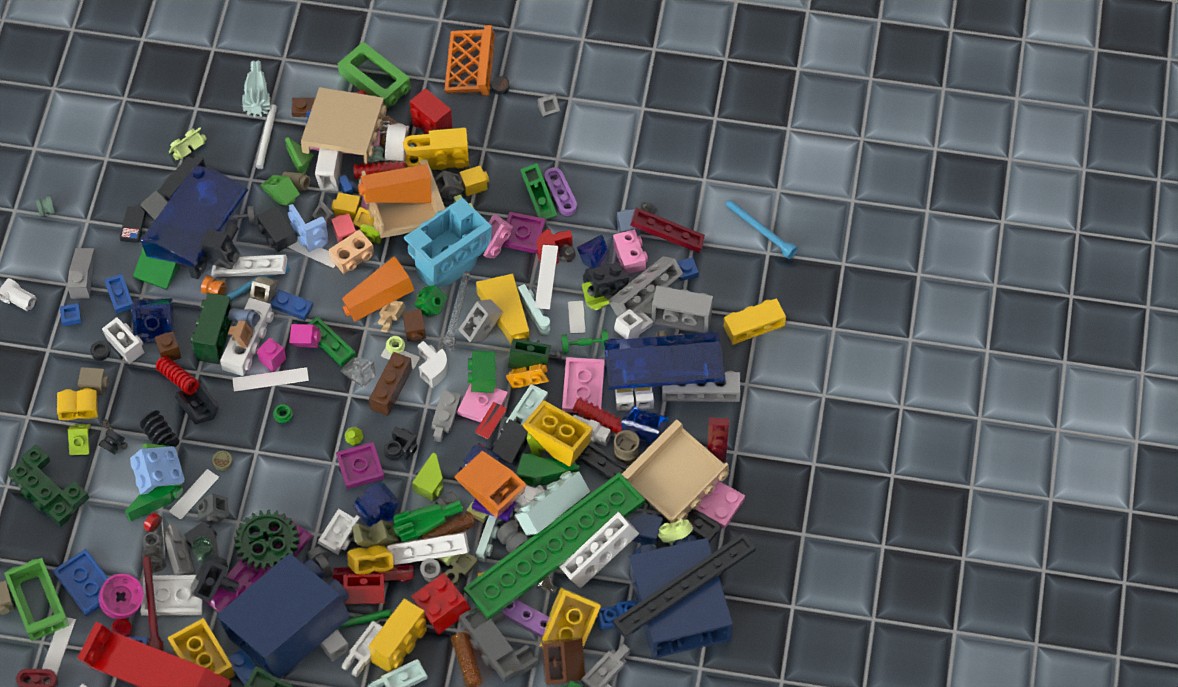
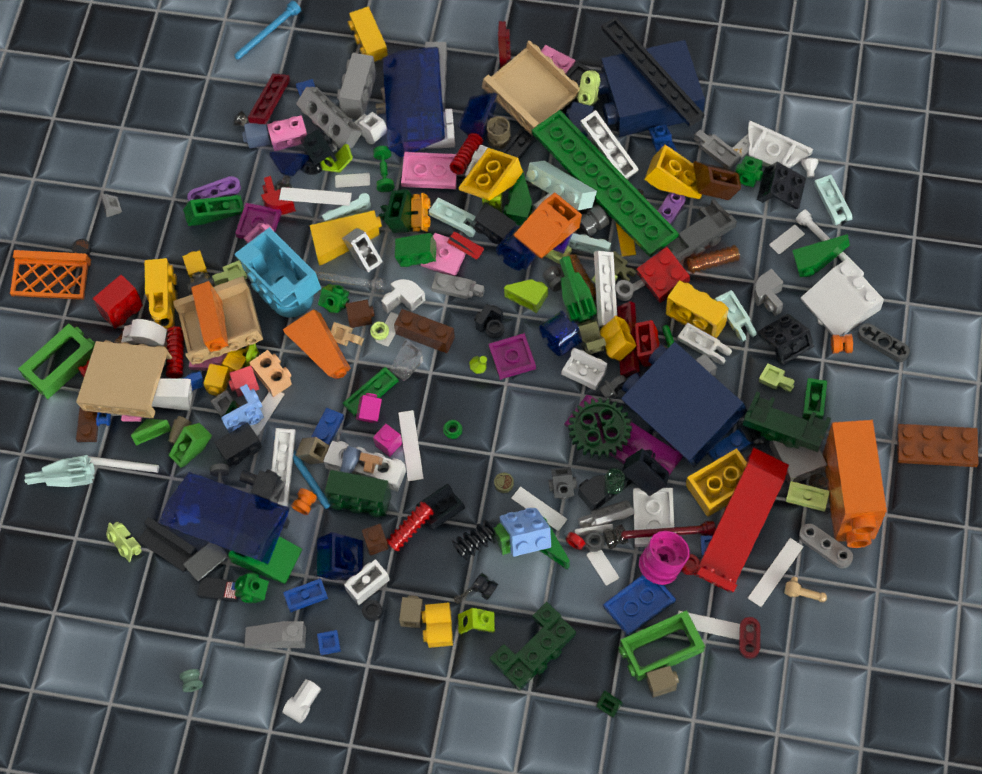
camera: 85 degrees left, 5 degrees up
(126, 551) = (603, 567): none -> white sticker
(127, 245) = (251, 588): none -> green brick

